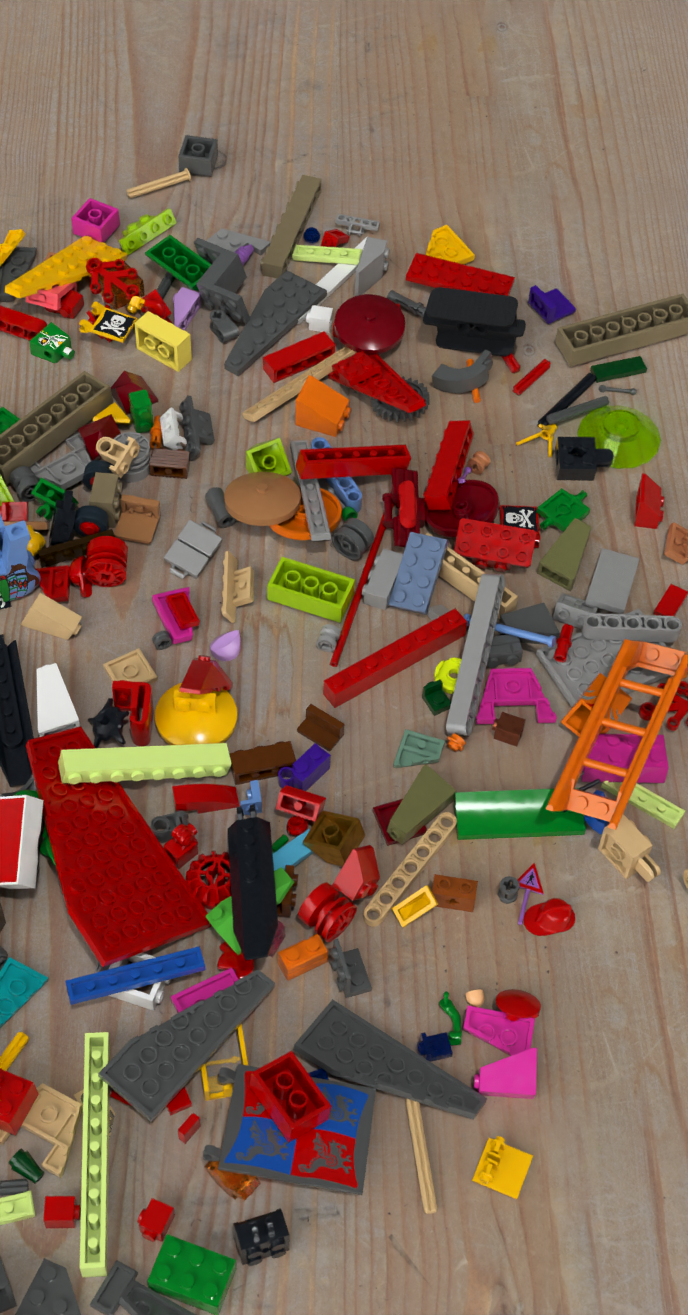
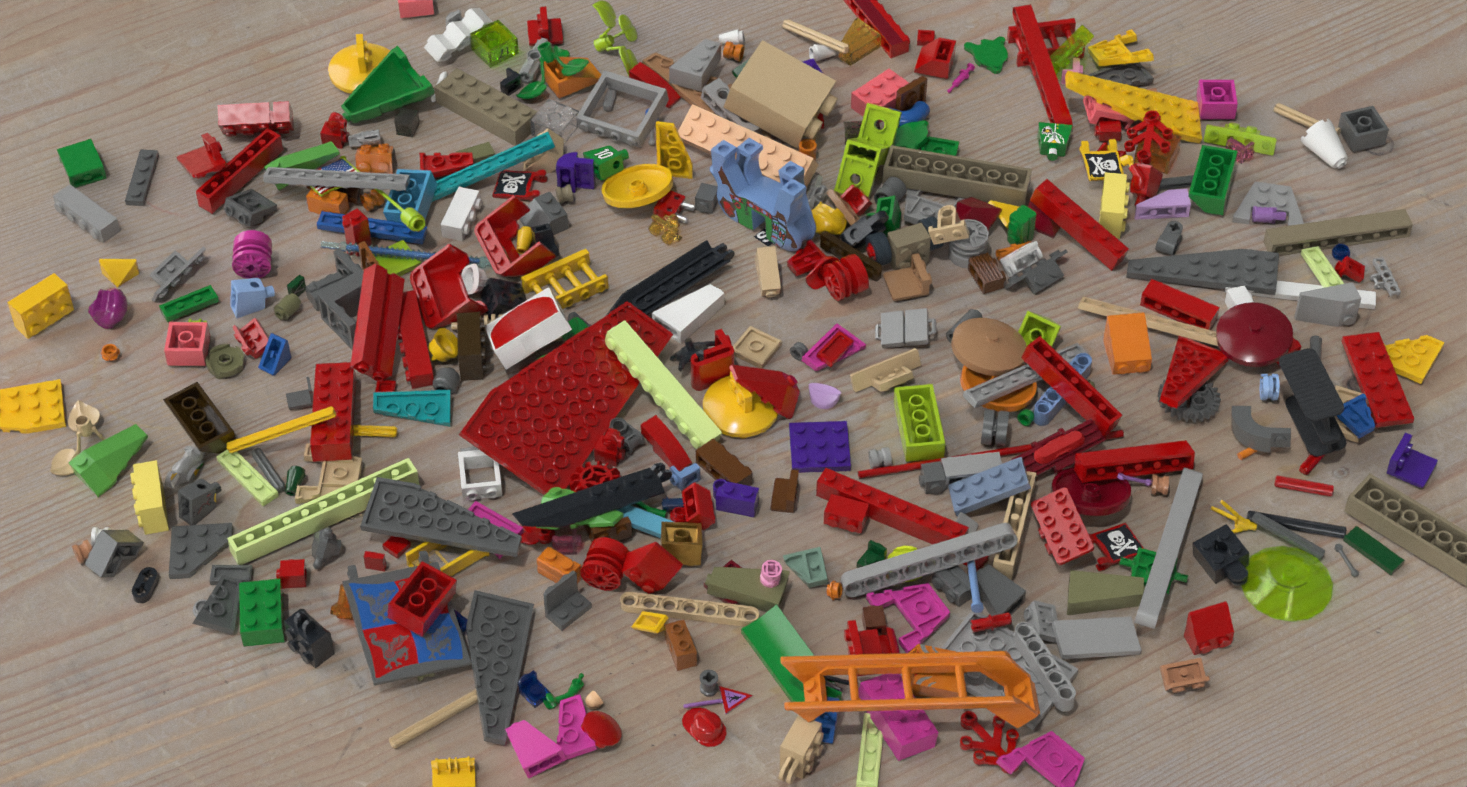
camera: 65 degrees right, 5 degrees down
(61, 1212) = (267, 510): red brick -> none
(135, 975) = (473, 466): blue plate -> none
(139, 1172) = (324, 546): none -> dark grey rock
(157, 236) = (1244, 152): none -> clear pink bracket
(171, 371) = (1079, 224): none -> red brick
(198, 184) = (1325, 143): none -> white cone
(222, 280) = (1213, 210): dark grey bracket -> none
(279, 824) = (671, 503): none -> dark blue pin
(282, 678) = (819, 446): none -> dark purple plate
(356, 368) = (1193, 348): red plate -> none
(376, 610) = (932, 478): none -> dark grey brick
(379, 692) = (846, 513): none -> red brick
(423, 346) = (1269, 387): none -> light blue wheel
(428, 777) = (770, 573): none -> bright pink wheel
(541, 744) = (869, 641): none -> red piece
(555, 487) = (1168, 548): none -> light grey beam
(671, 601) = (1108, 695): red tile -> none

